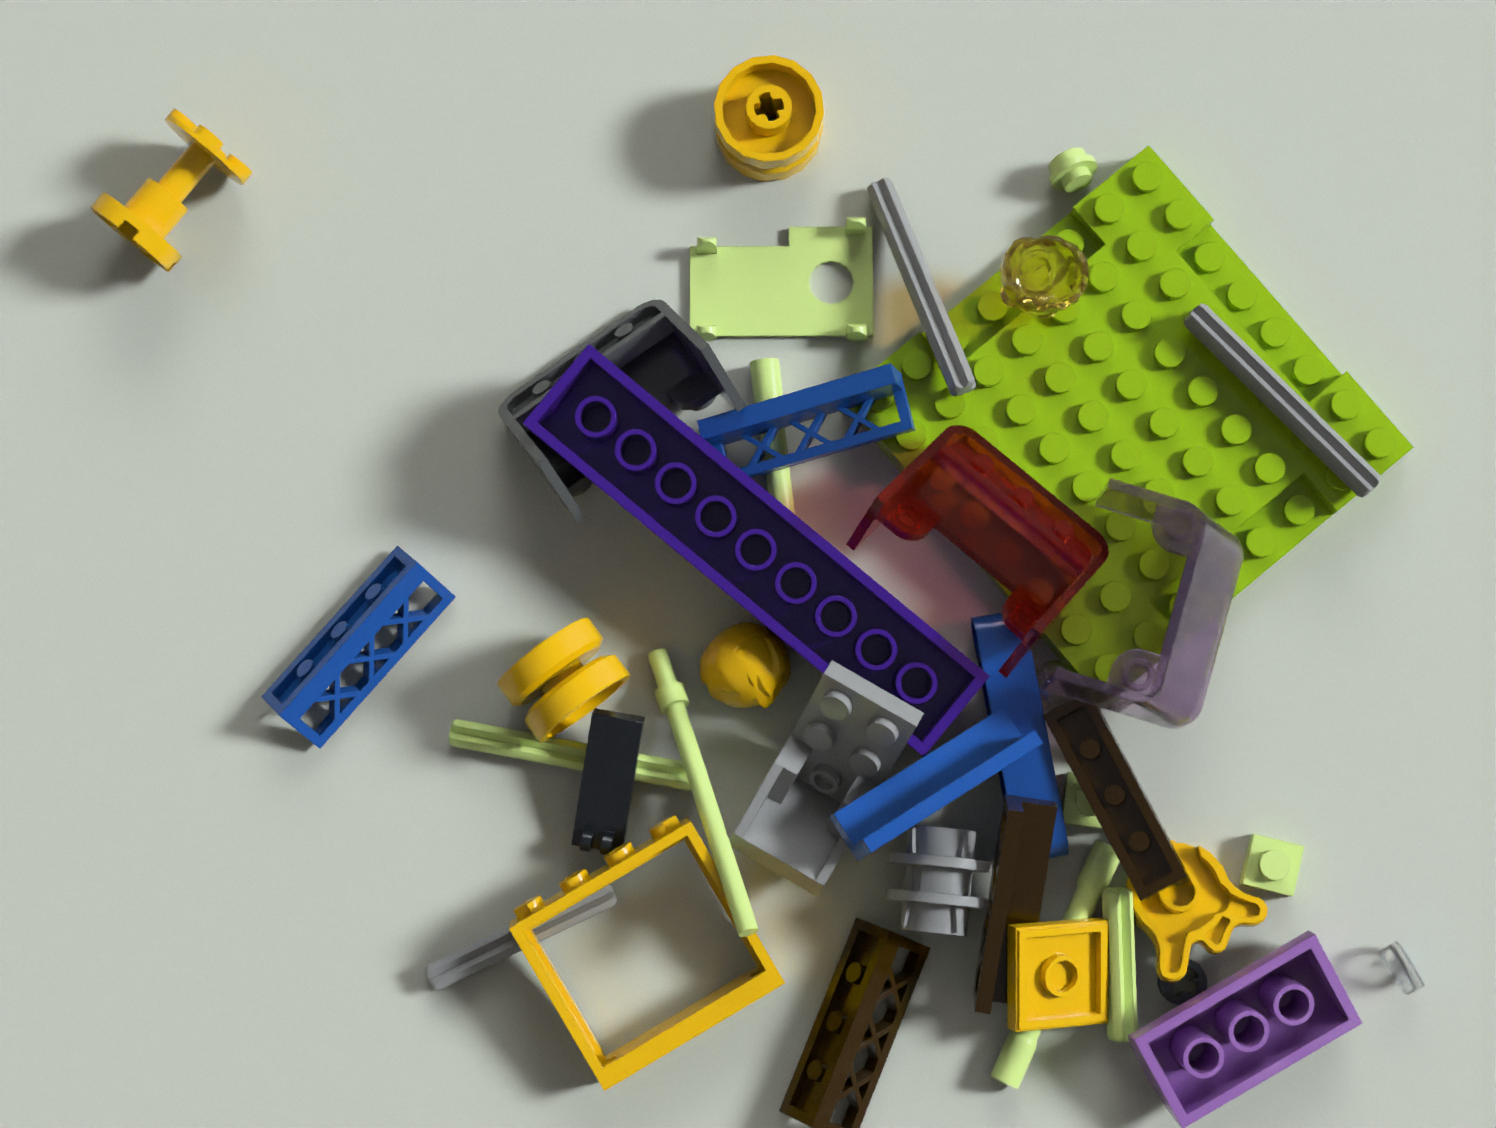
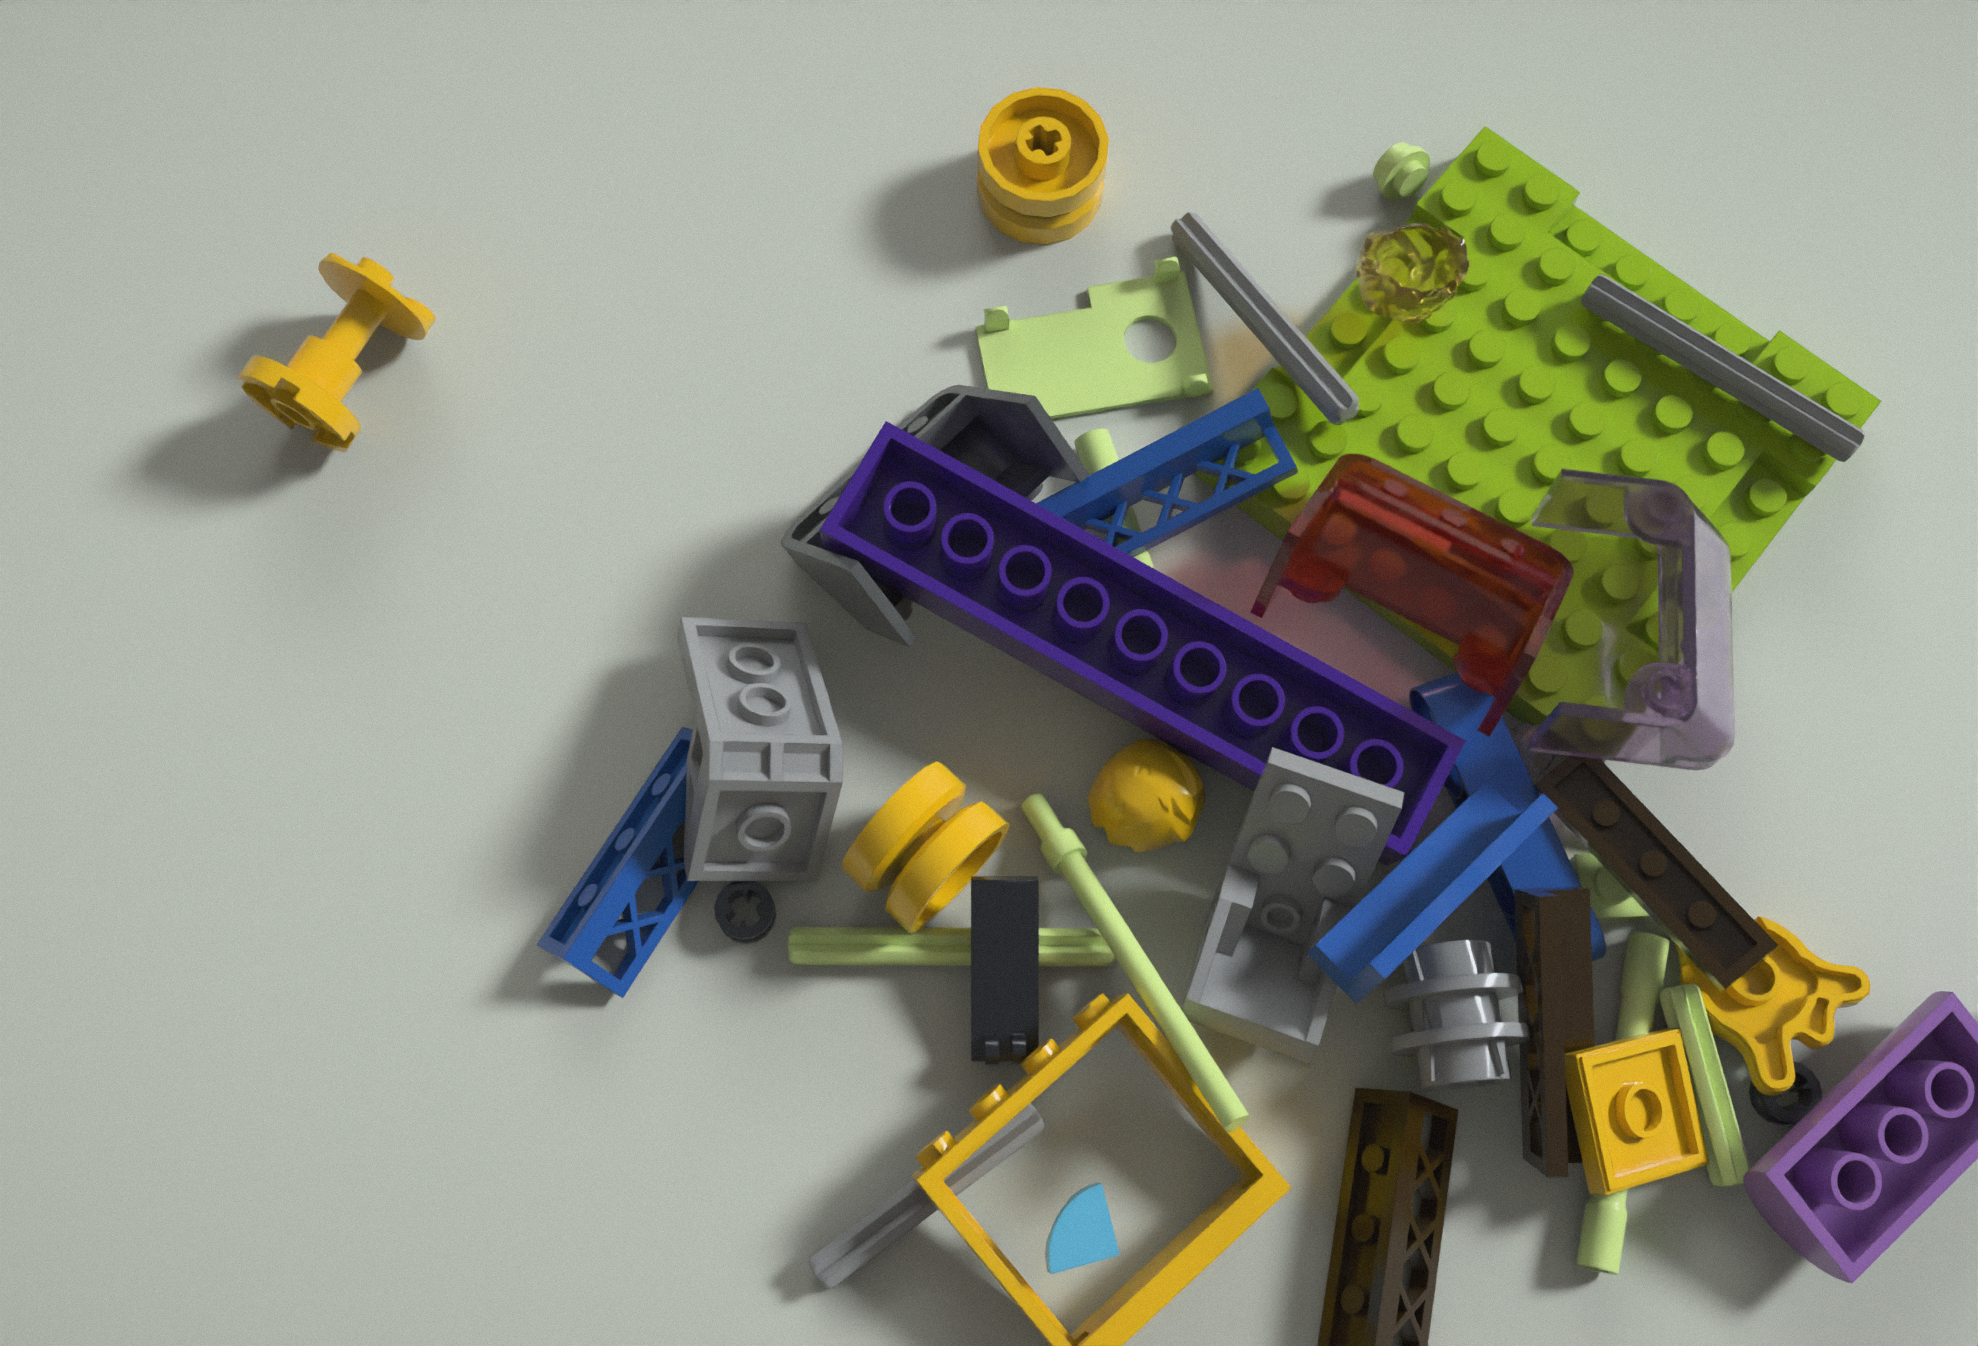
camera: 15 degrees left, 10 degrees down
(437, 702) = (725, 913): none -> black bush
(453, 576) = (759, 752): none -> light grey bracket
(621, 987) = (1081, 1232): none -> medium azure tile
(1271, 865) = (1852, 925): yellowish green plate -> none

